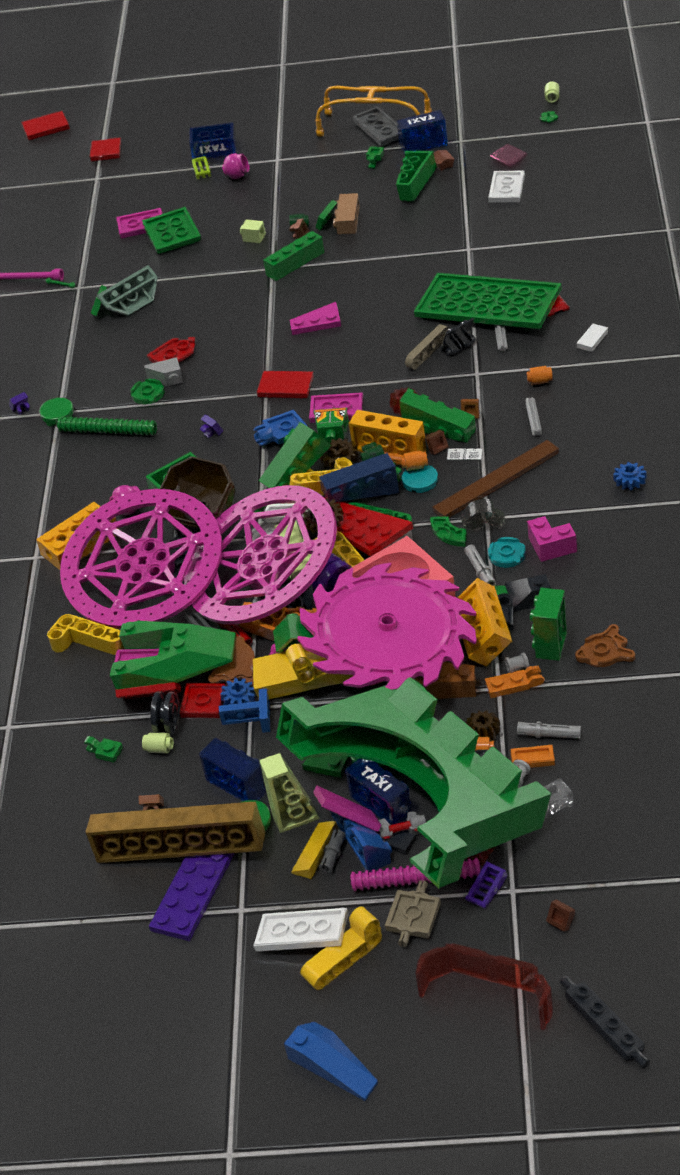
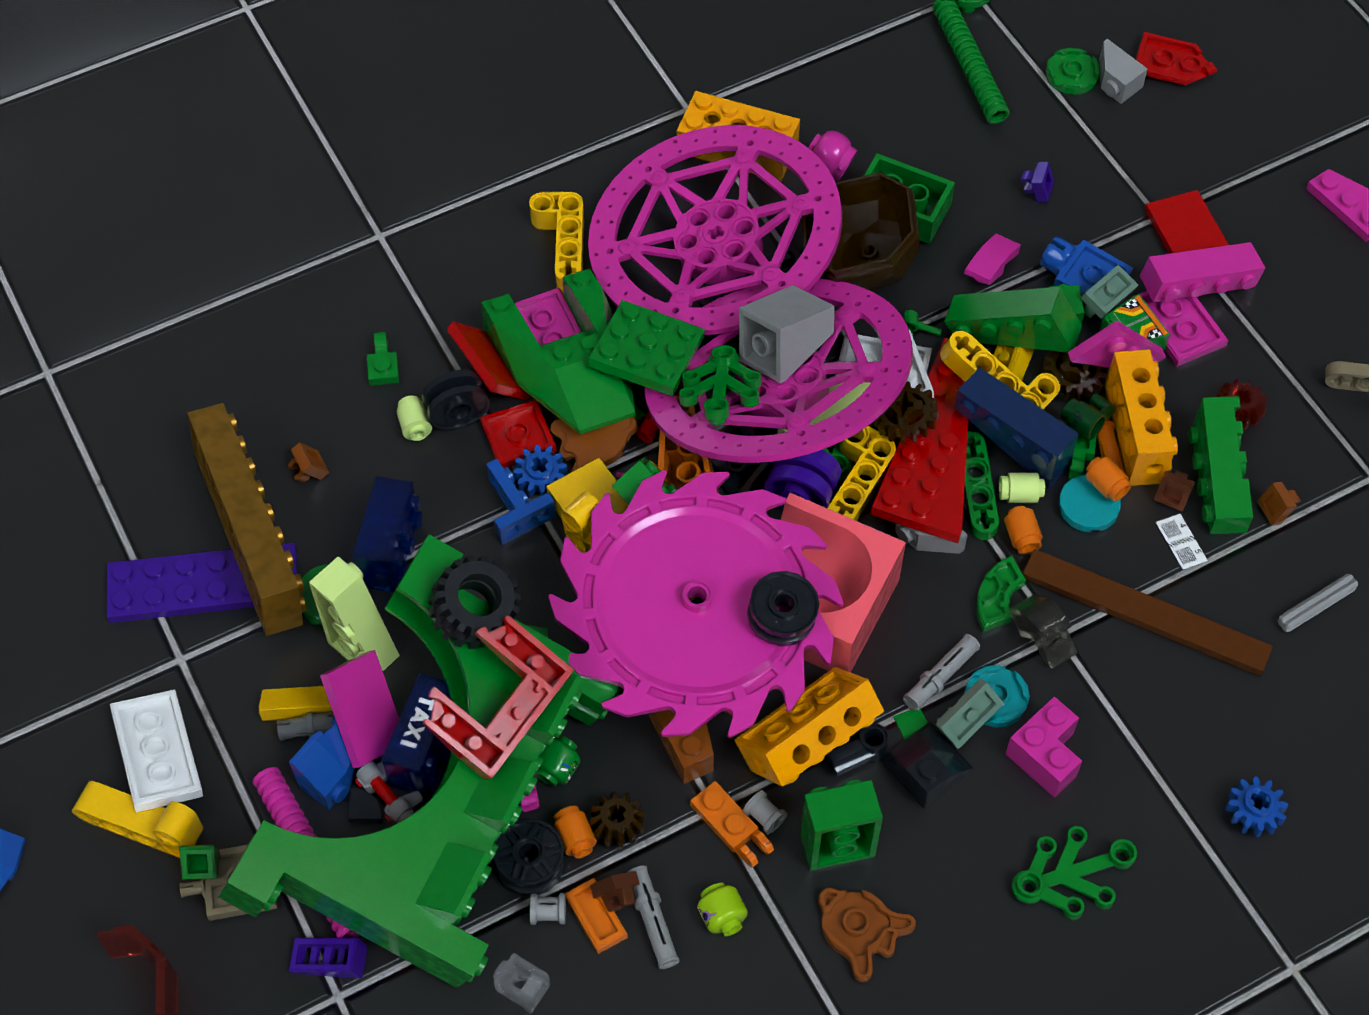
camera: 55 degrees right, 15 degrees up
(202, 606) = (646, 348): none -> green plate
(236, 576) = (722, 361): none -> green plant
(242, 541) = (783, 331): none -> light grey slope
(245, 461) = (991, 259): none -> dark pink slope
(305, 416) = (1108, 292): none -> sand green hinge
(318, 383) = (1202, 272): none -> dark pink brick
(339, 696) = (477, 576): none -> black tyre
(341, 428) = (1114, 338): none -> dark pink wing
(392, 922) = (199, 861): none -> green slope
(393, 498) = (1021, 487): none -> yellowish green brick
(418, 506) = (1023, 529): none -> orange brick
(419, 587) = (790, 591): none -> black wheel
(425, 724) = (489, 746): none -> wedge
(515, 565) = (969, 713): none -> sand green hinge
(524, 735) = (616, 890): none -> copper tile
(562, 699) = (722, 909): none -> lime head
(621, 573) = (1069, 873): none -> green plant

